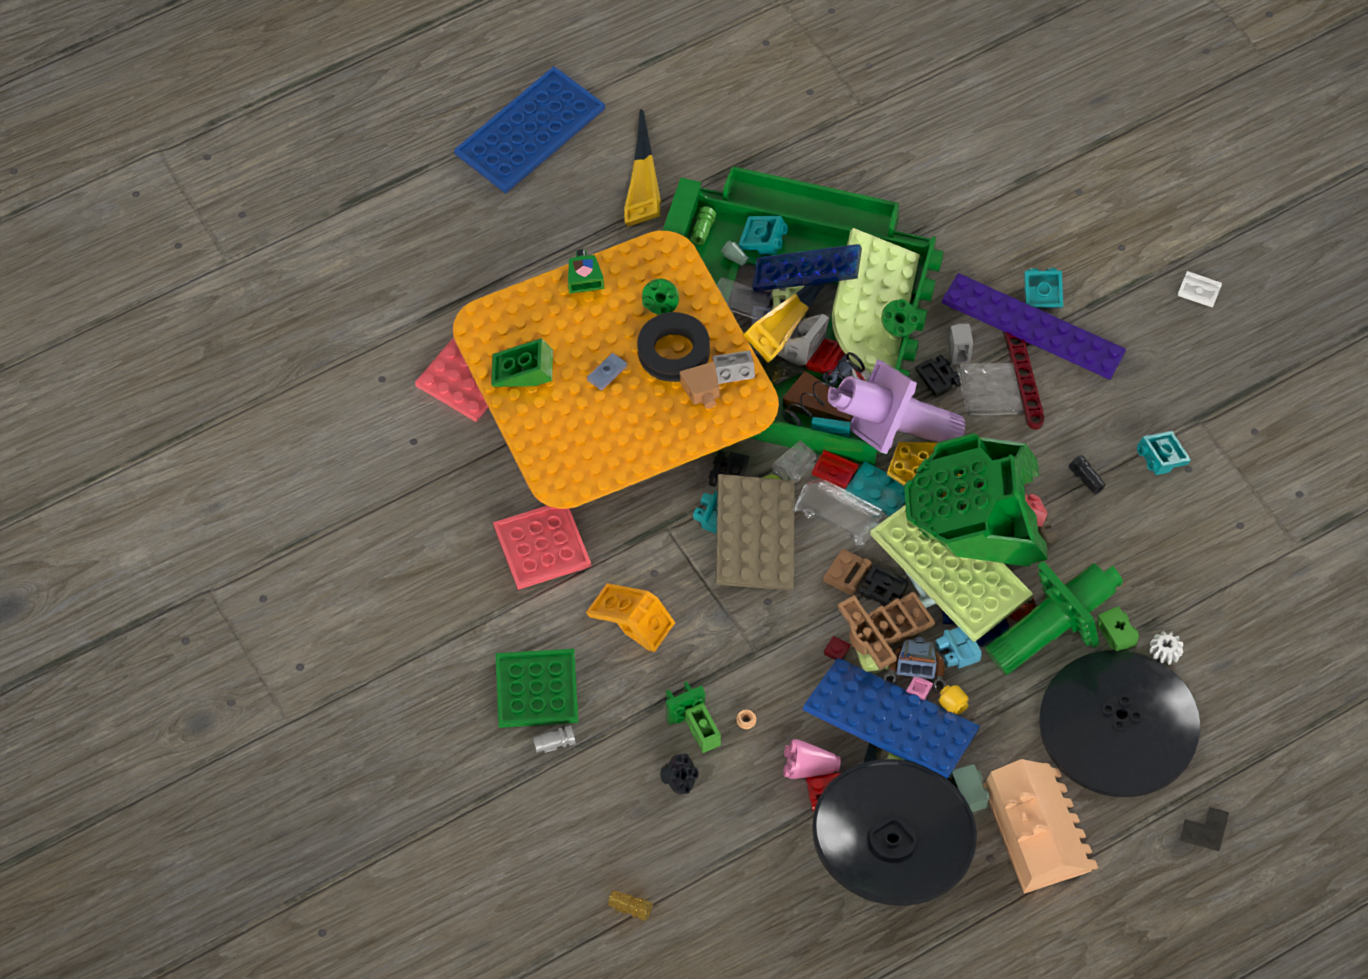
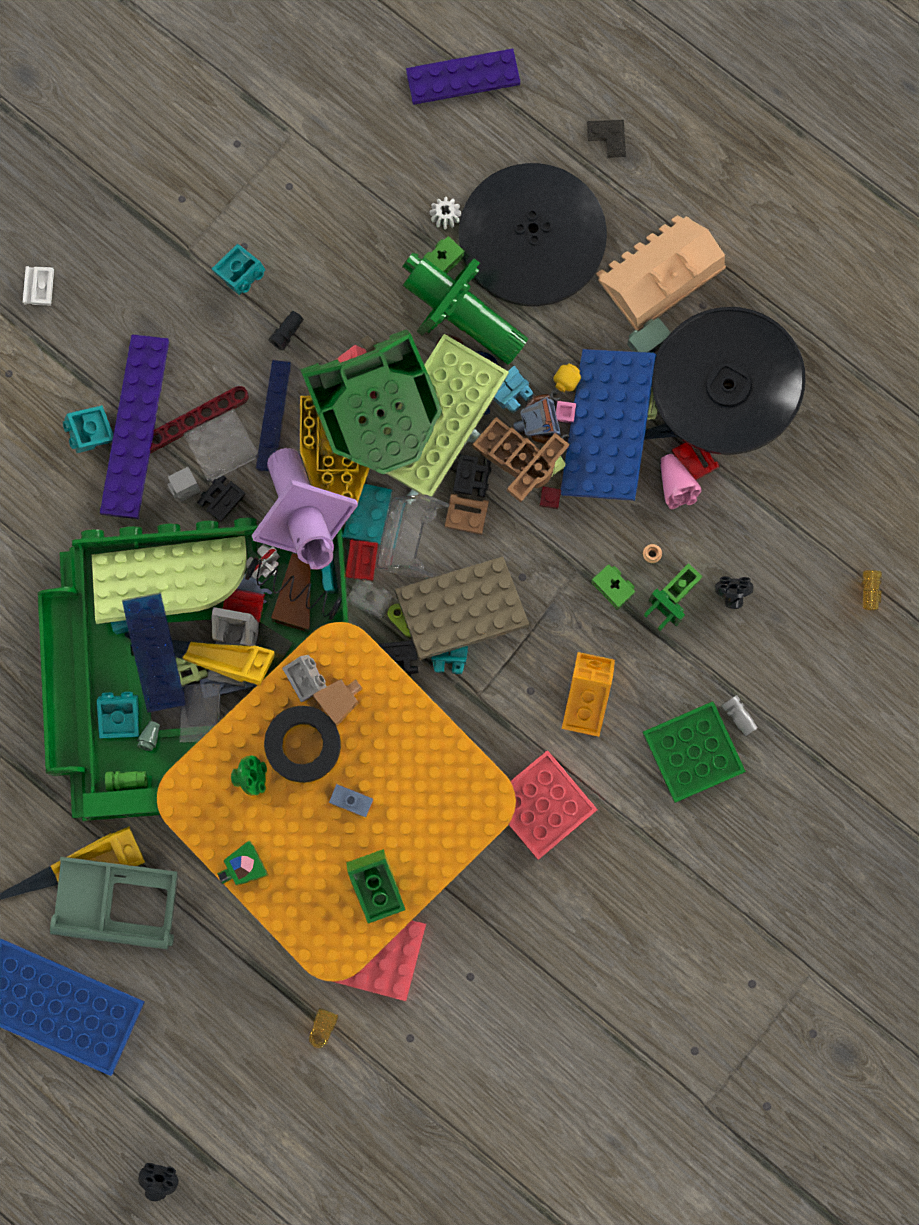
camera: 110 degrees left, 20 degrees up
(352, 156) = (158, 1181): none -> black plate
(421, 311) = (324, 1024): none -> clear yellow piece
(603, 172) = (86, 903): none -> sand green piece
(725, 671) = (616, 596): none -> bright green brick
(899, 318) = (189, 540): green plate -> none
(1046, 458) = (273, 412): none -> clear blue plate
(1314, 715) = (463, 76): none -> dark purple plate

